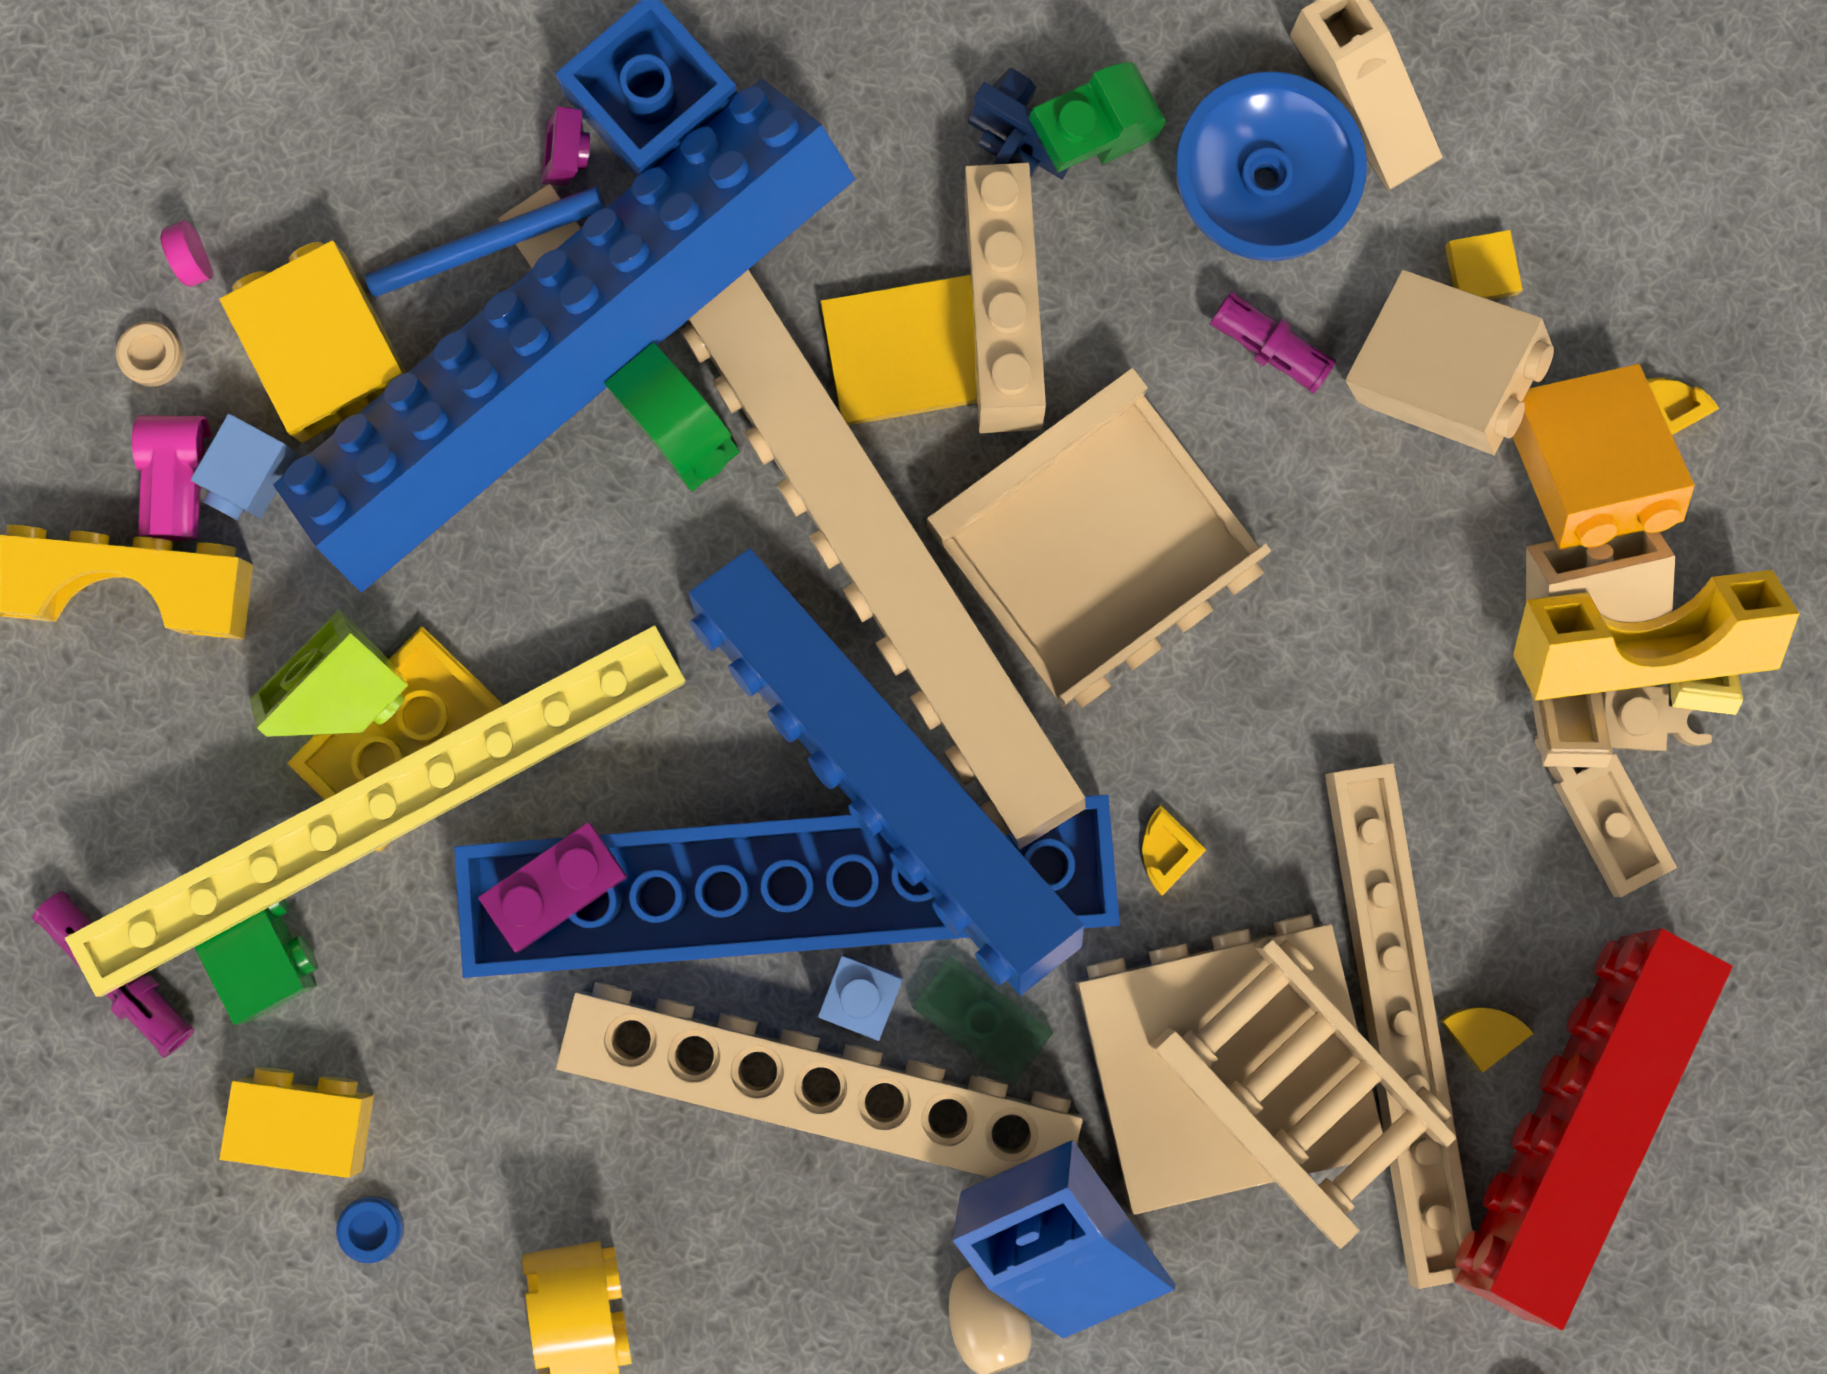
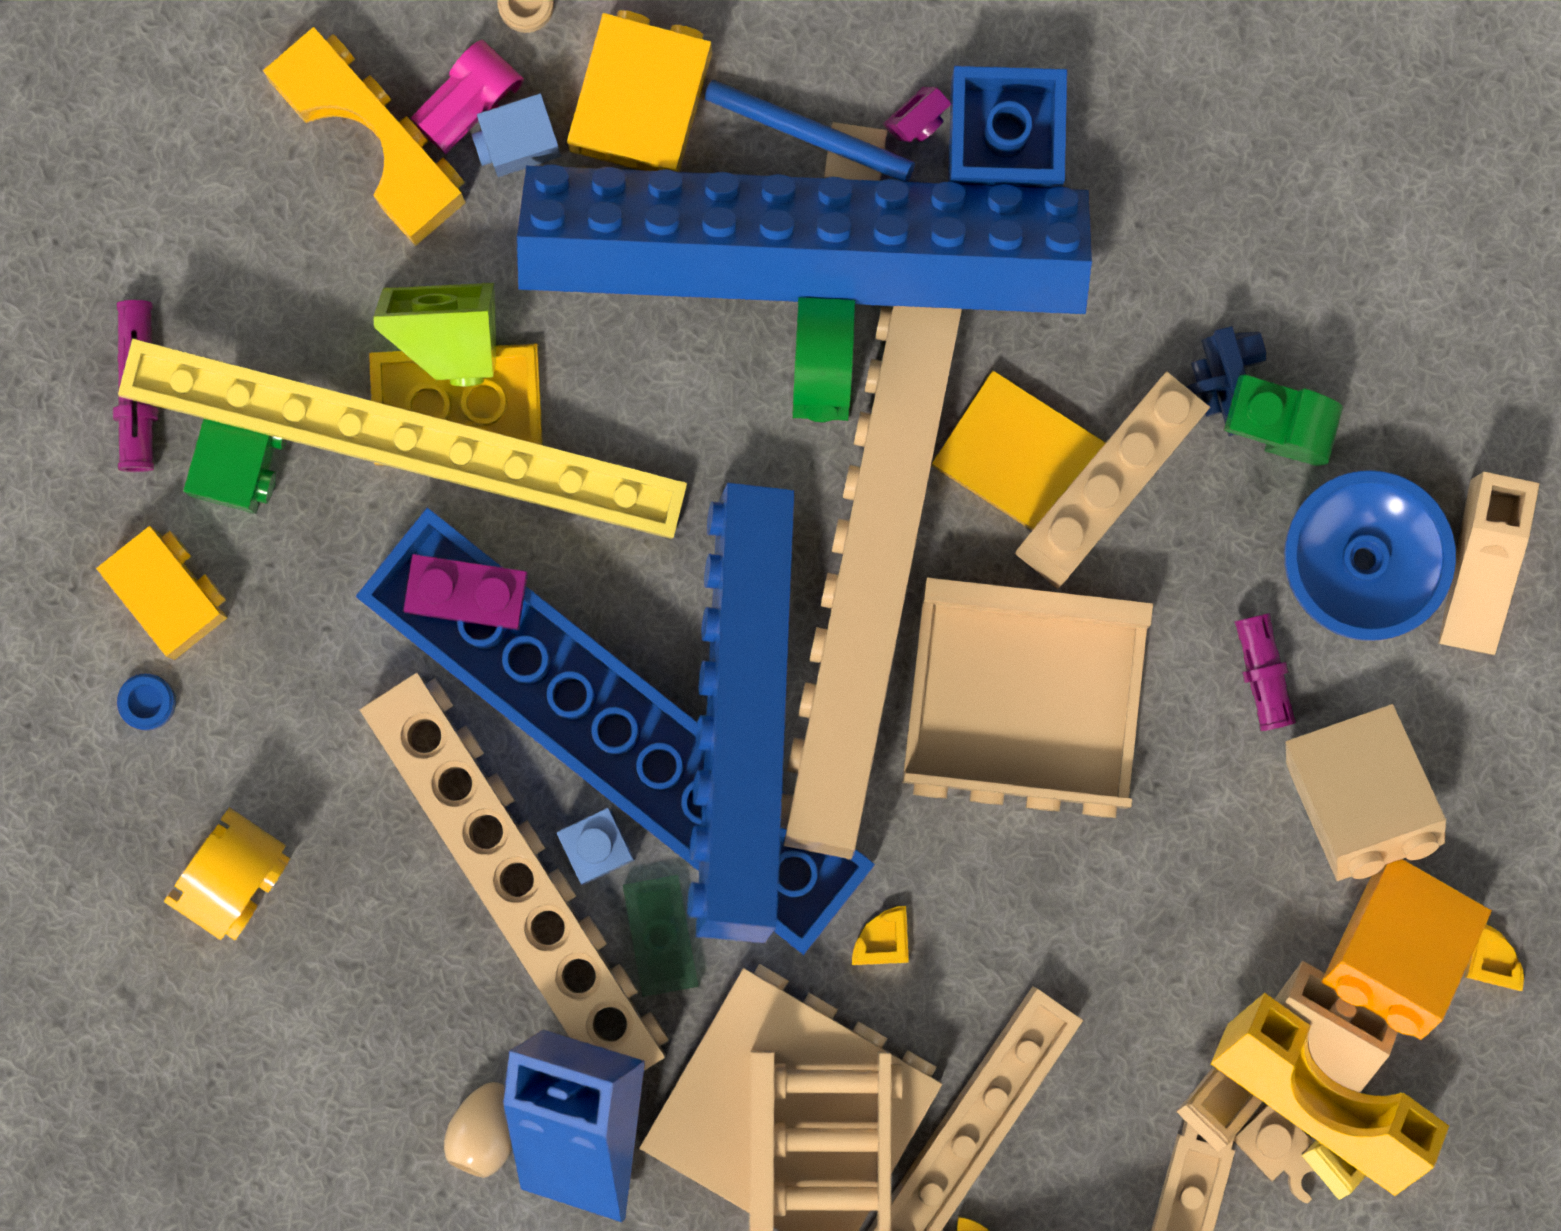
camera: 45 degrees right, 0 degrees up
(1485, 265) = (1454, 753): yellow tile -> none

